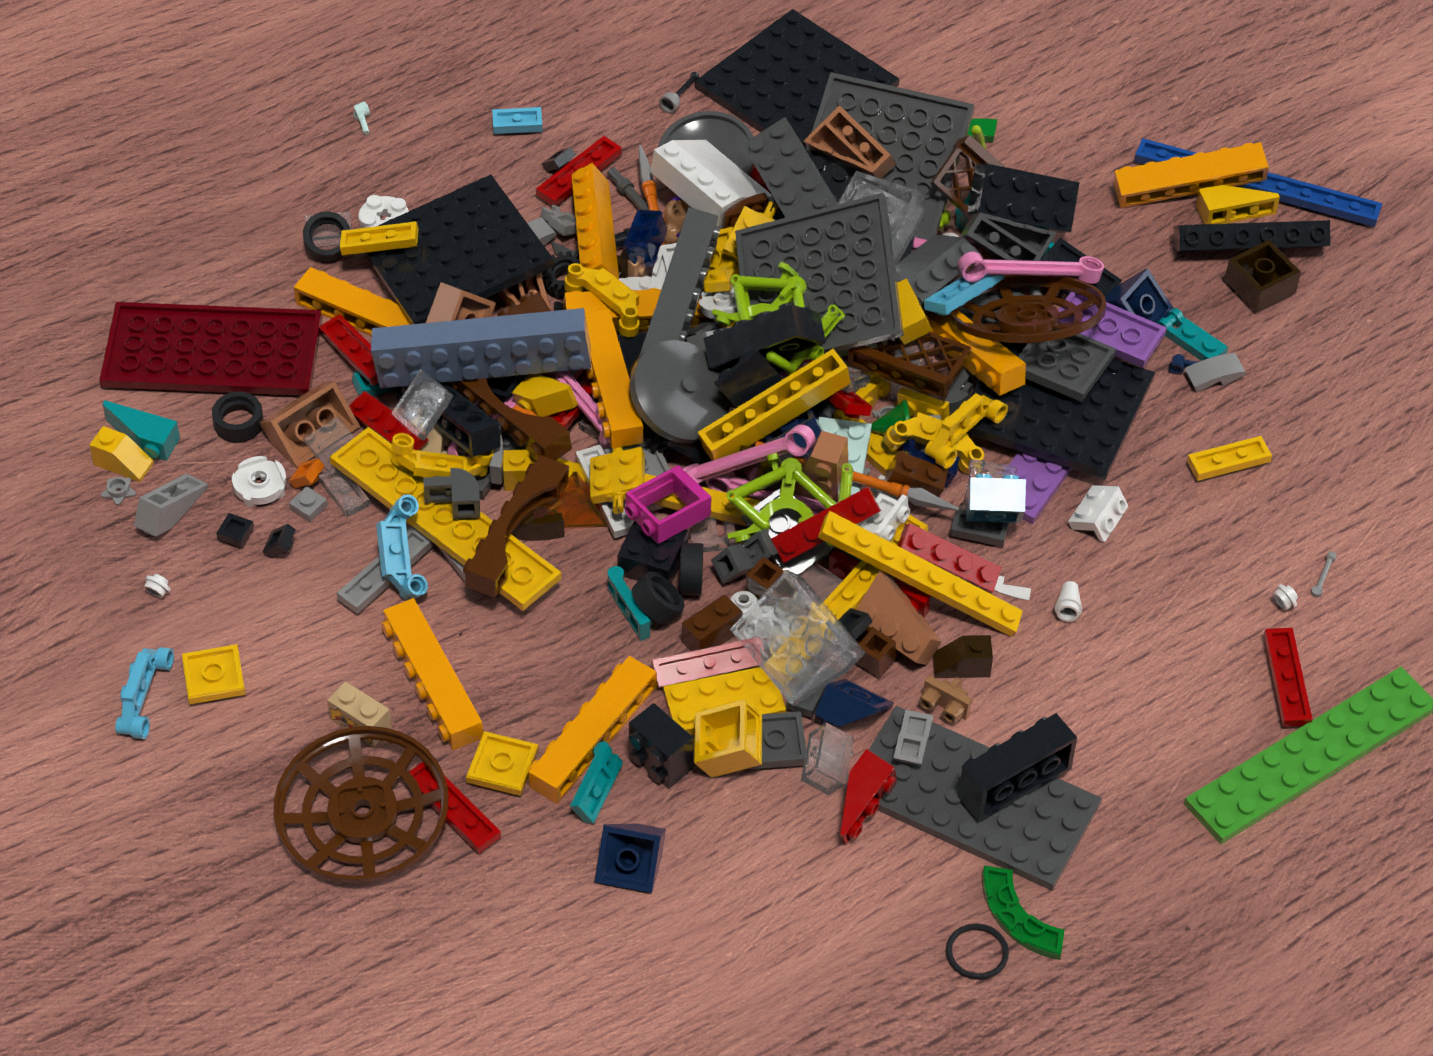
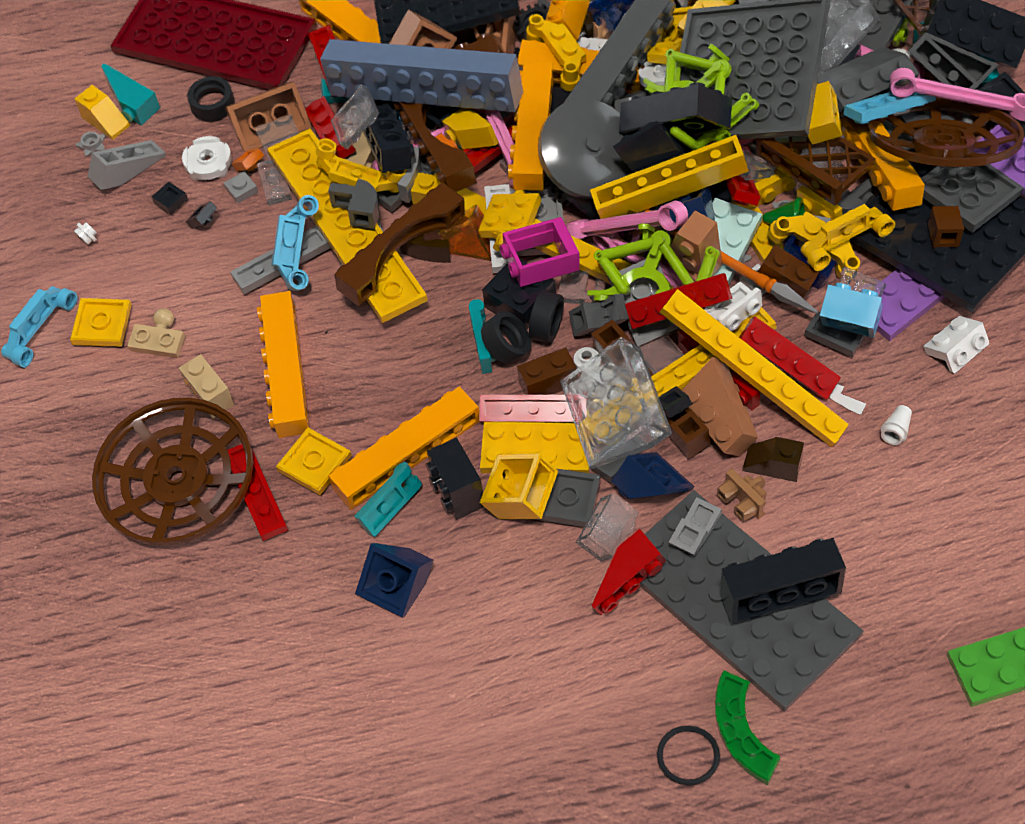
camera: 25 degrees right, 5 degrees up
(282, 678) = (157, 339): none -> tan plate
(1056, 400) = (945, 226): none -> reddish brown brick

